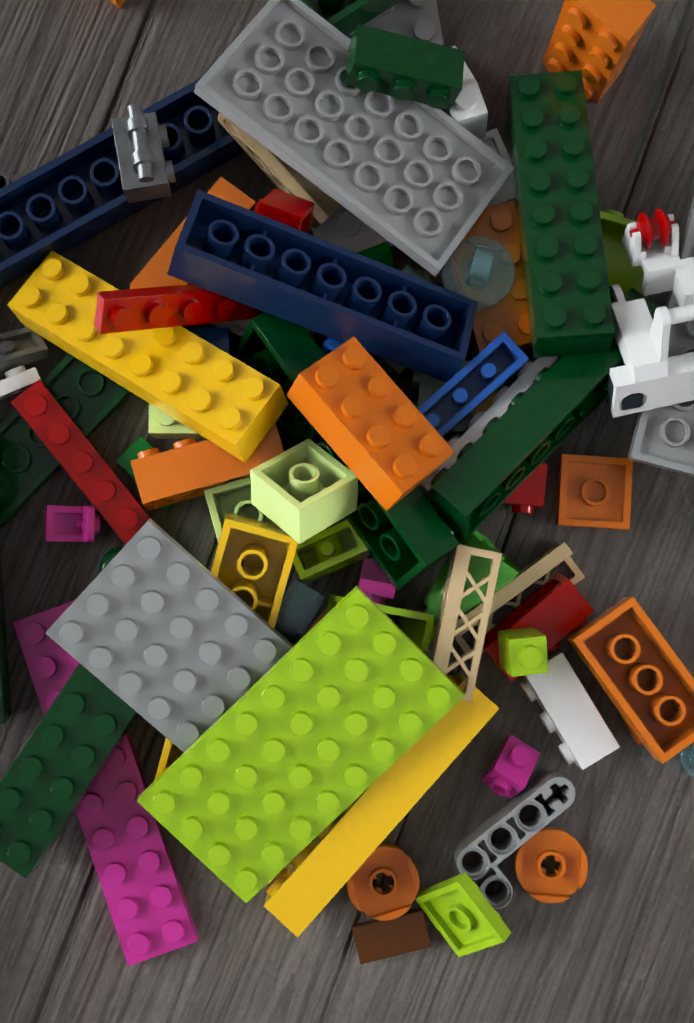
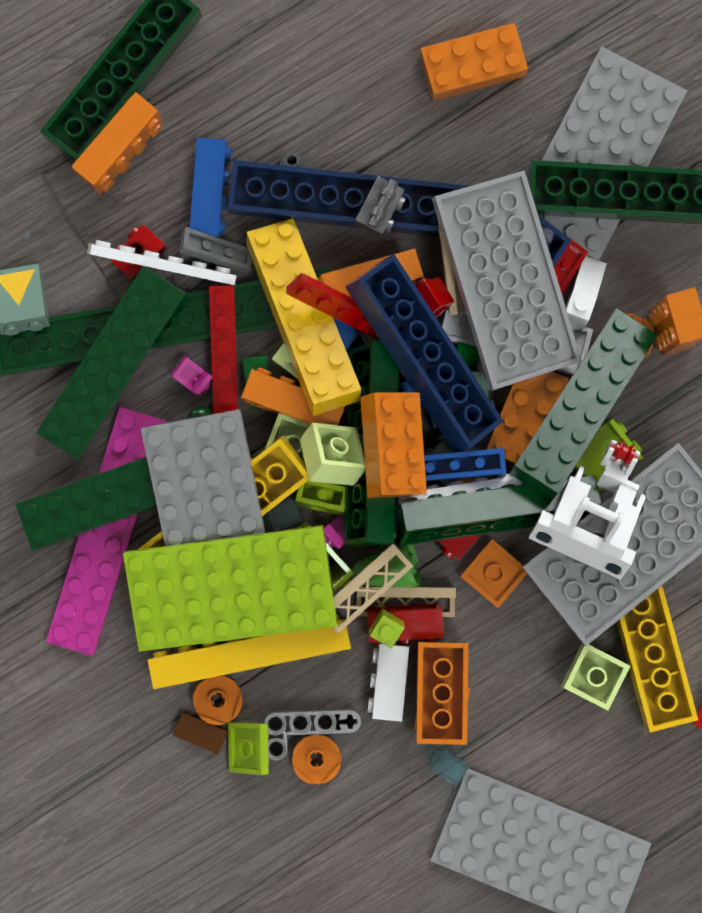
camera: 30 degrees right, 0 degrees up
(404, 67) = (557, 265): dark green brick -> none
(479, 271) = (517, 405): clear light blue tile -> none
(511, 767) = (334, 690): dark pink bracket -> none

